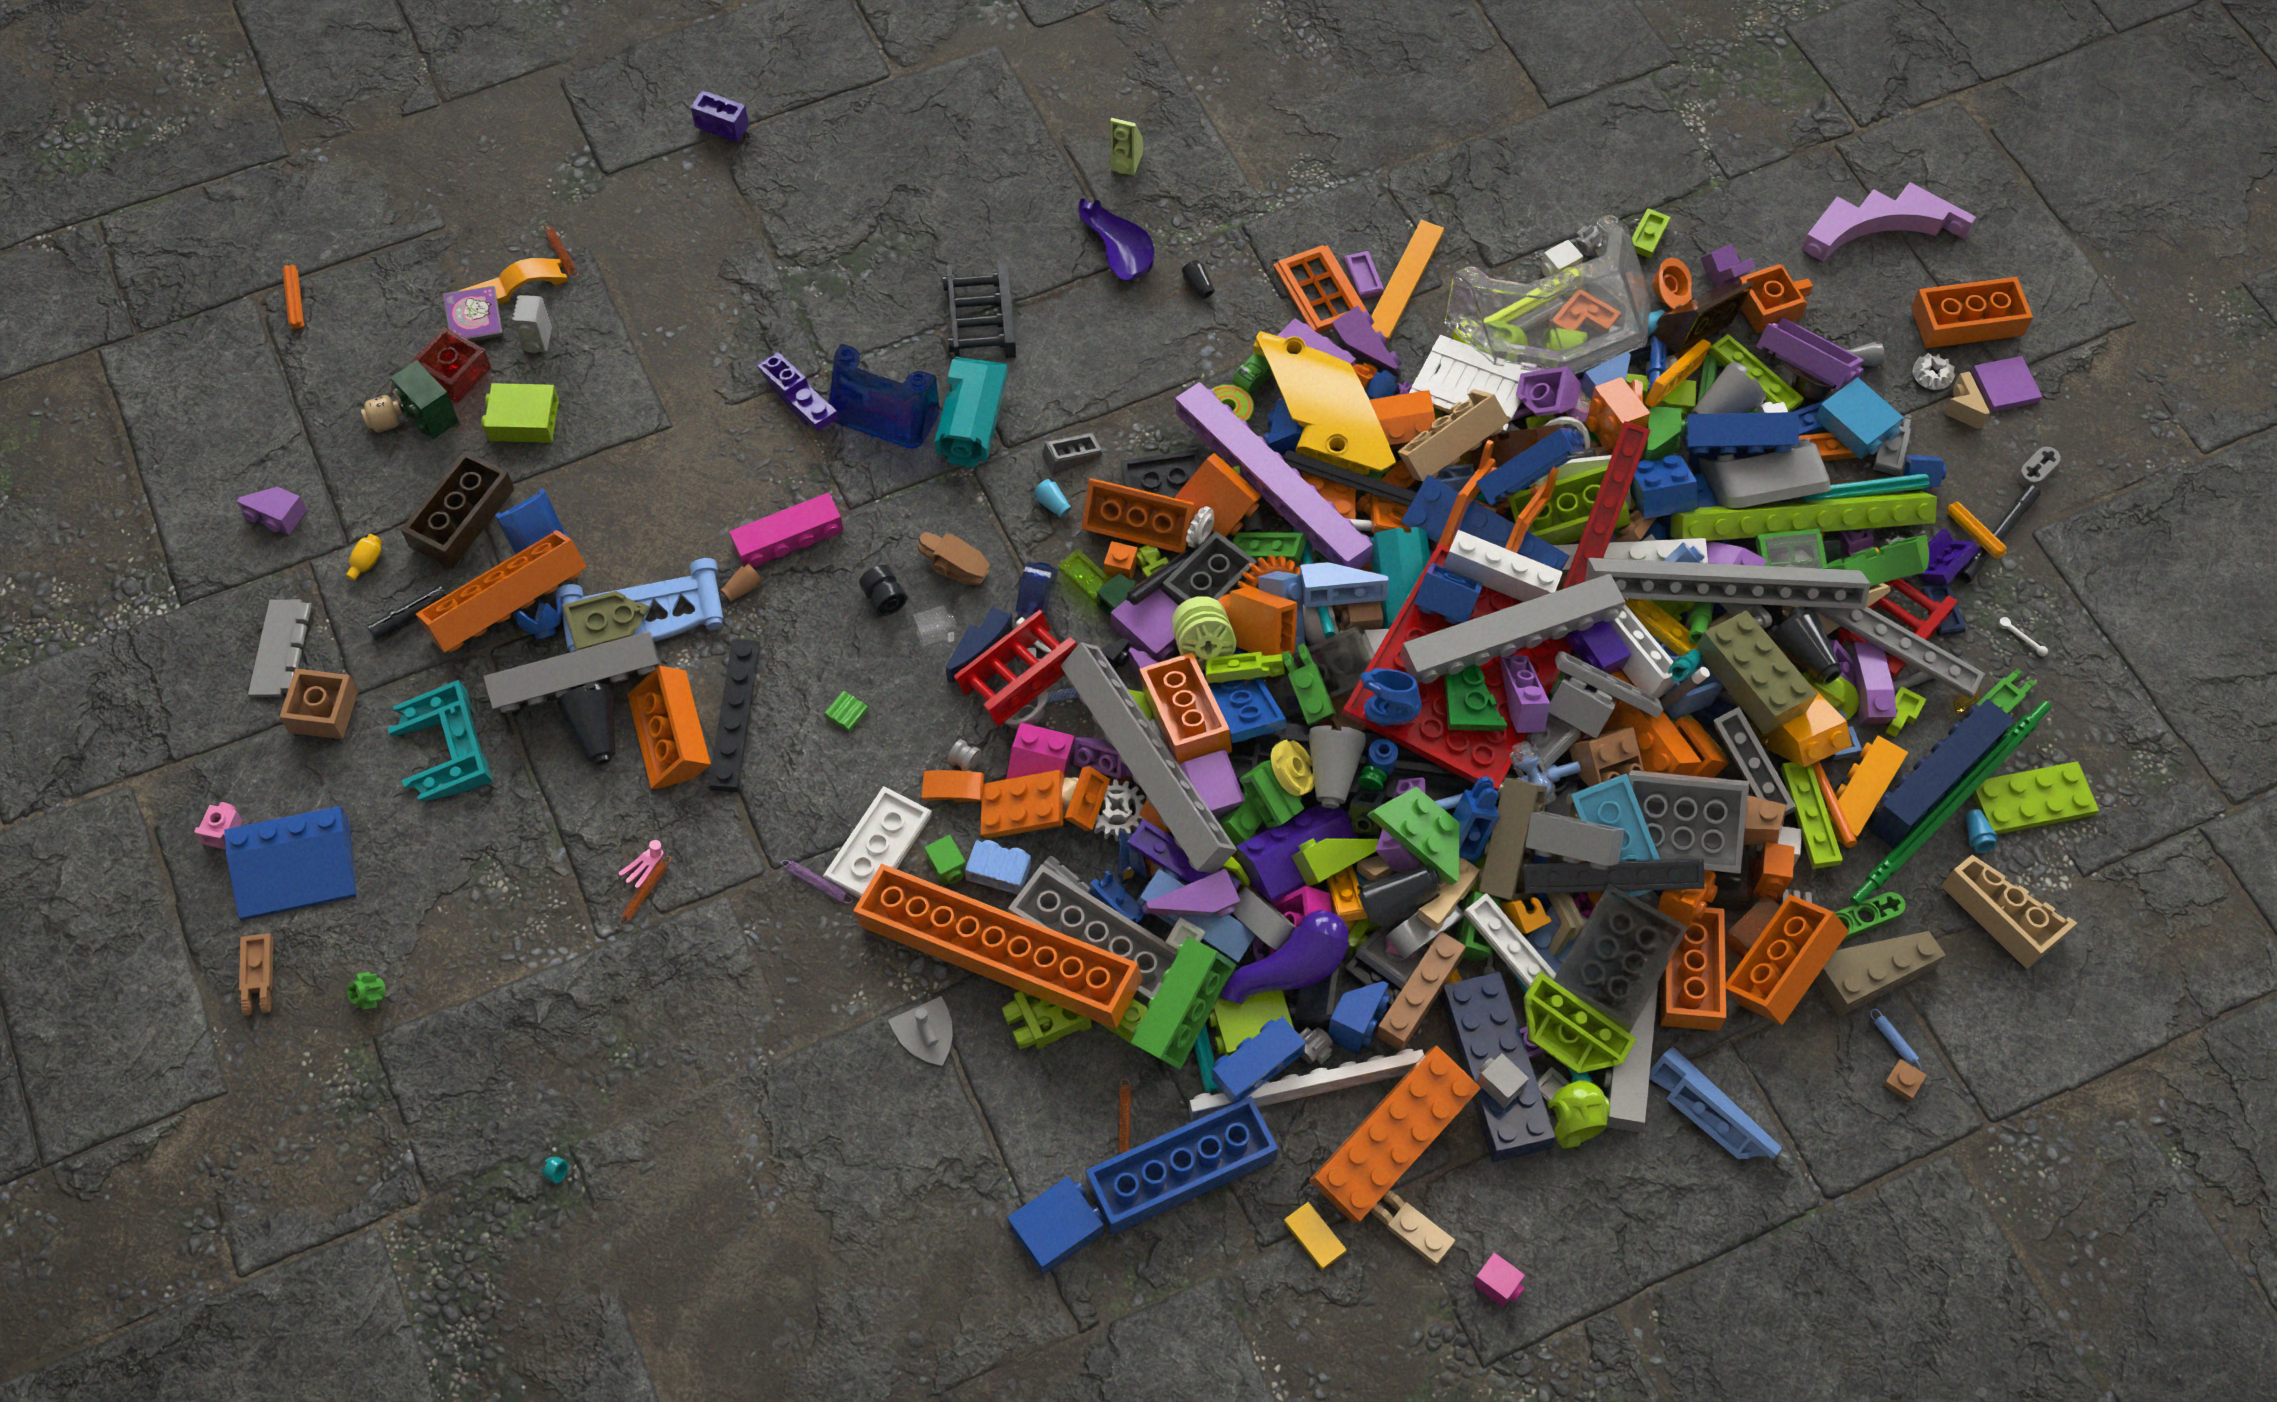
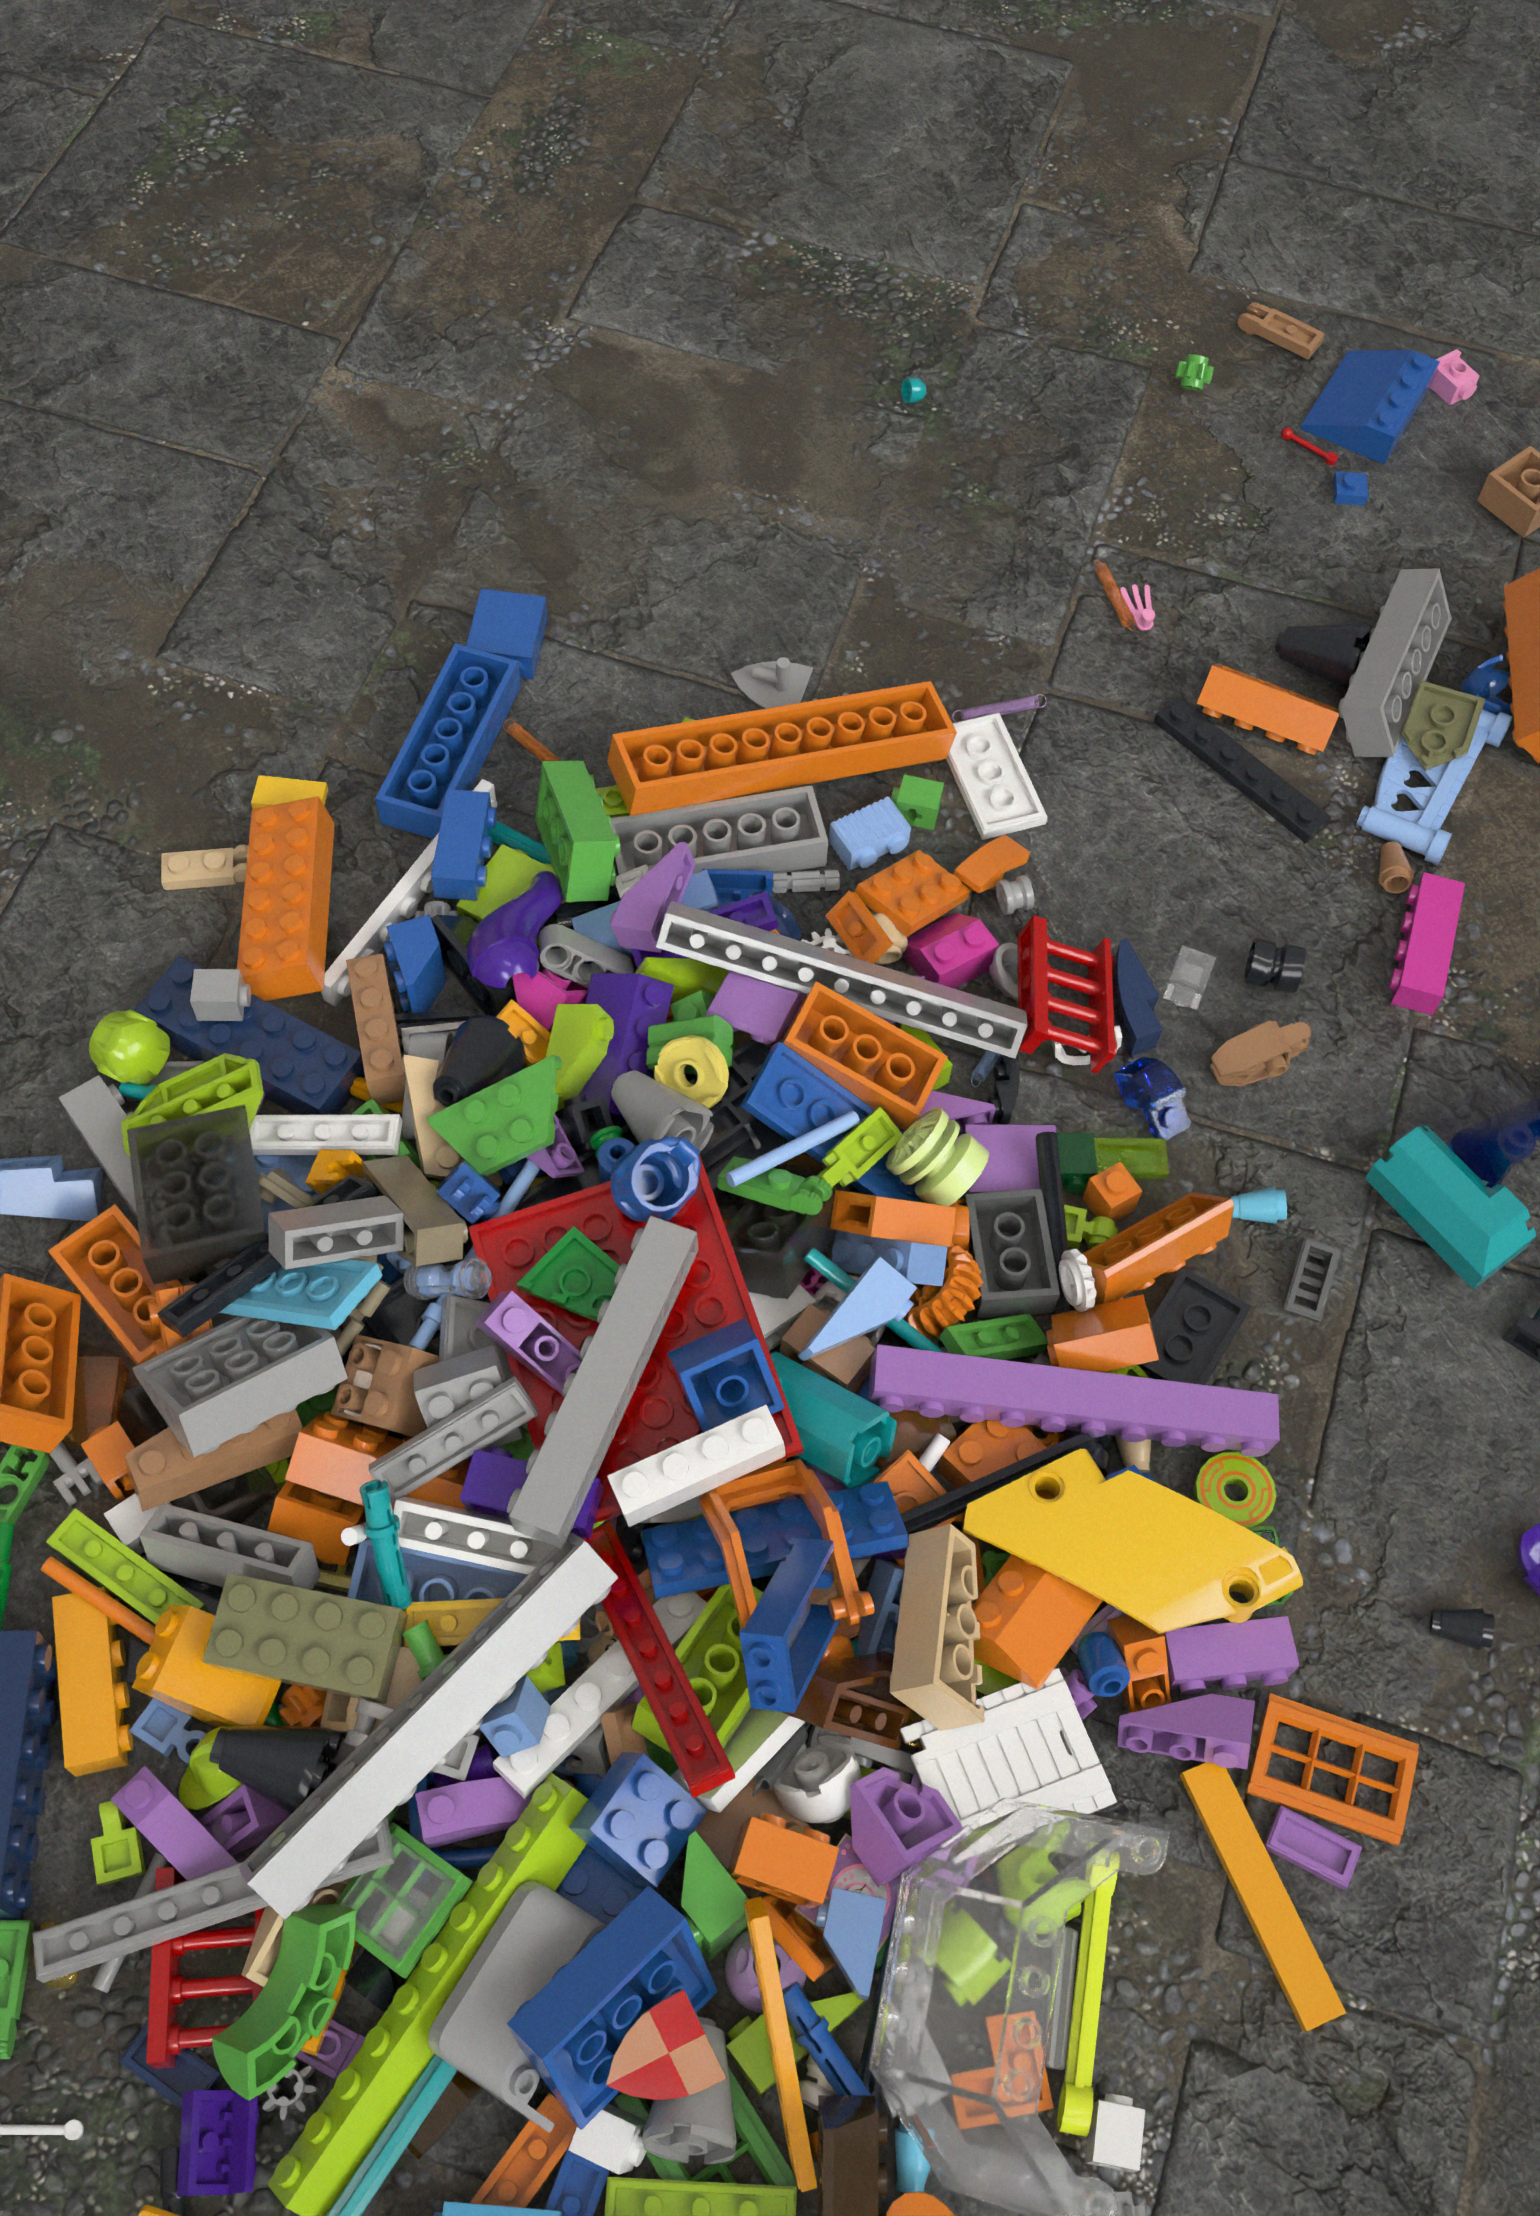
camera: 130 degrees right, 0 degrees up
(375, 855) = (1330, 457): none -> red hinge
(399, 821) = (1350, 488): none -> blue plate
(468, 765) = (1366, 552): teal wedge -> none
(846, 711) = (1162, 852): bright green piece -> none
(1280, 687) = (792, 1148): none -> light blue bar
(1499, 1280) = (91, 880): brick -> none
(1731, 399) = (665, 2054): none -> shield

